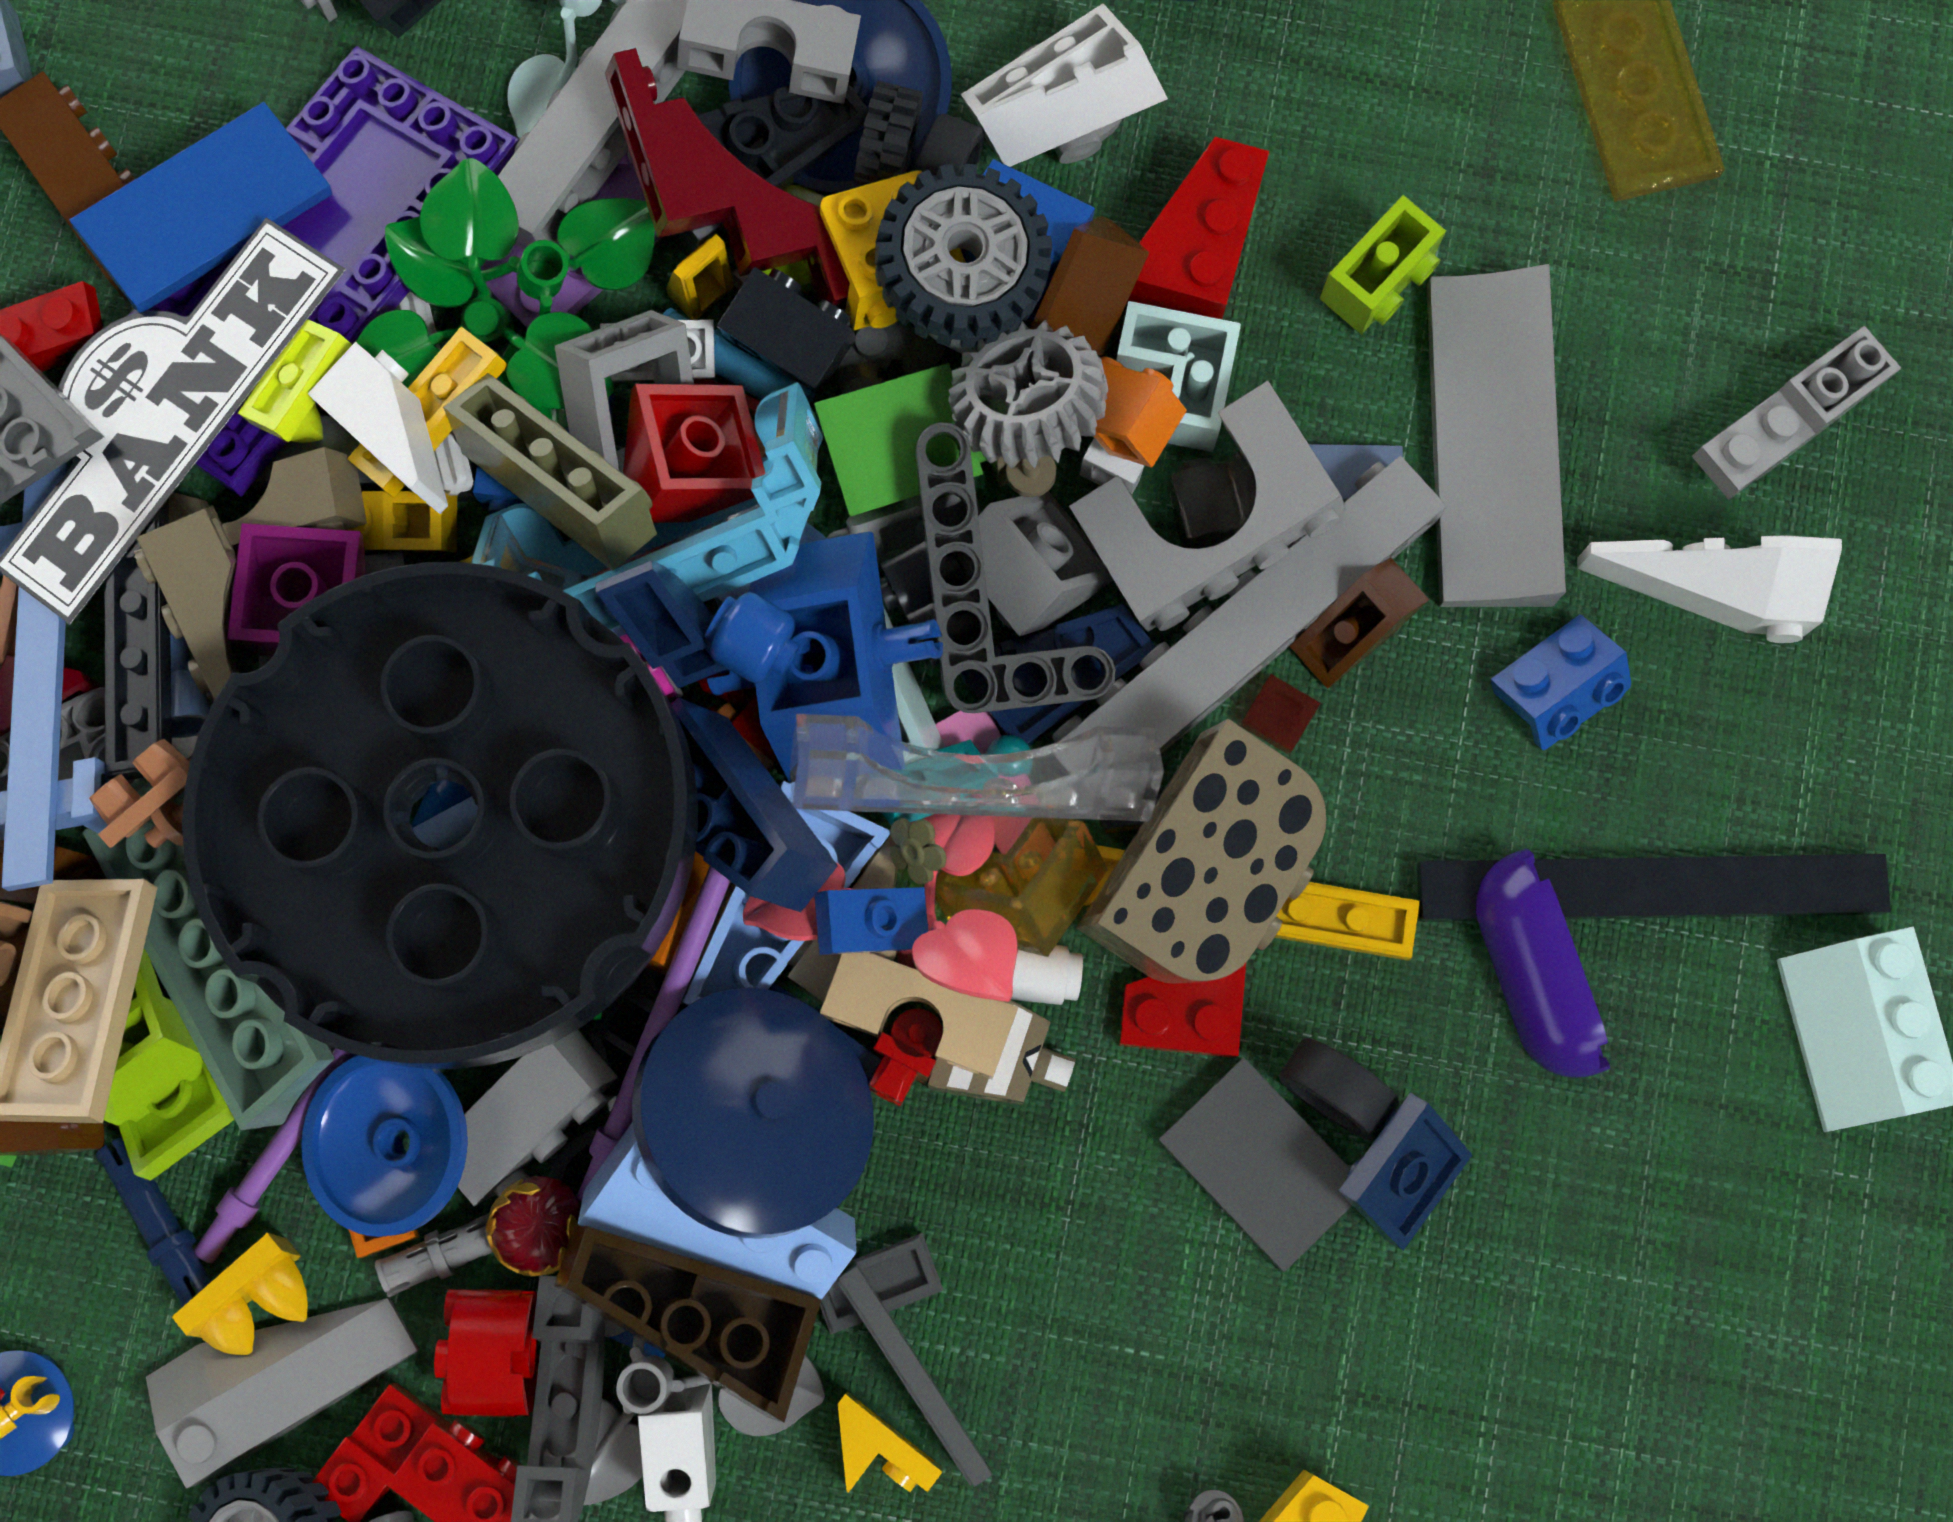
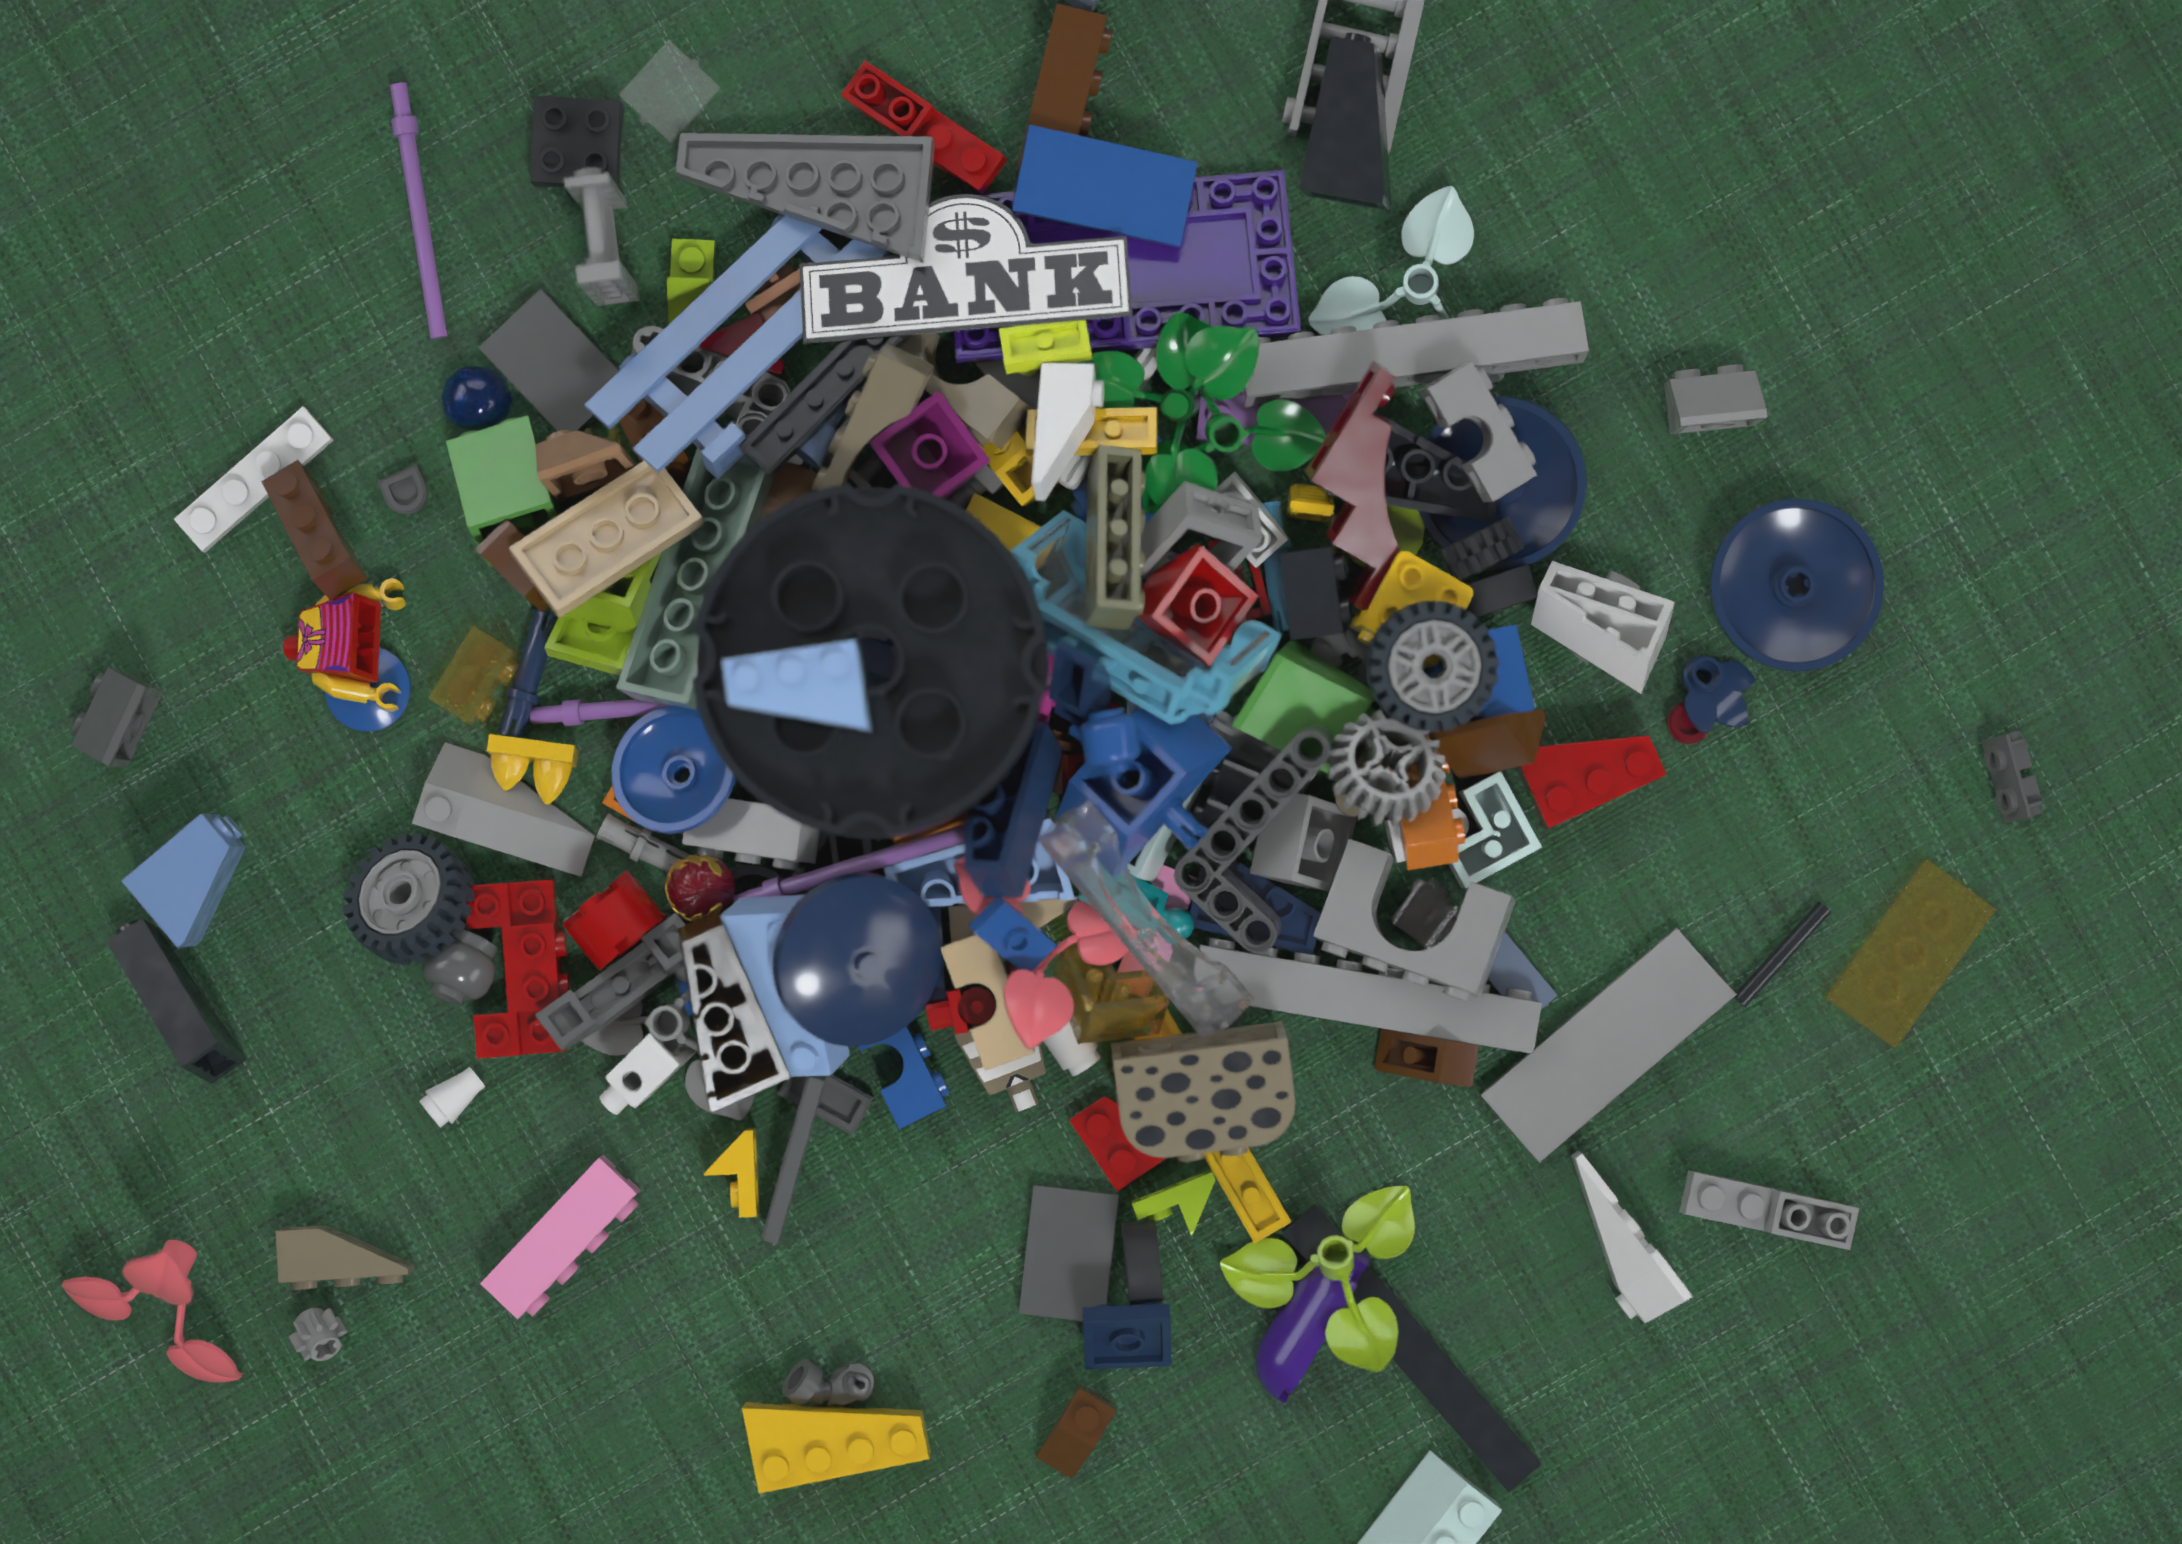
camera: 50 degrees right, 10 degrees up
(104, 1281) = (474, 677): none -> clear yellow bracket
(128, 811) = (765, 489): nougat hips -> none
(388, 897) = (803, 683): none -> light blue wedge
(916, 849) = (1075, 921): olive plant -> none
(953, 1176) = (918, 1089): none -> blue arch
(1223, 57) = (1720, 696): none -> dark blue plate
(1232, 108) = (1681, 727): none -> dark red tile
(1280, 714) = (1335, 1055): clear red tile -> none
(1307, 983) = (1189, 1194): none -> lime slope
(1382, 264) = (1655, 896): lime brick -> none
(1464, 1316) = (1076, 1431): none -> reddish brown slope
(1490, 818) = (1364, 1332): none -> lime plant
(1538, 200) = (1782, 954): none -> black bar
(1564, 681) = (1491, 1202): blue bracket -> none

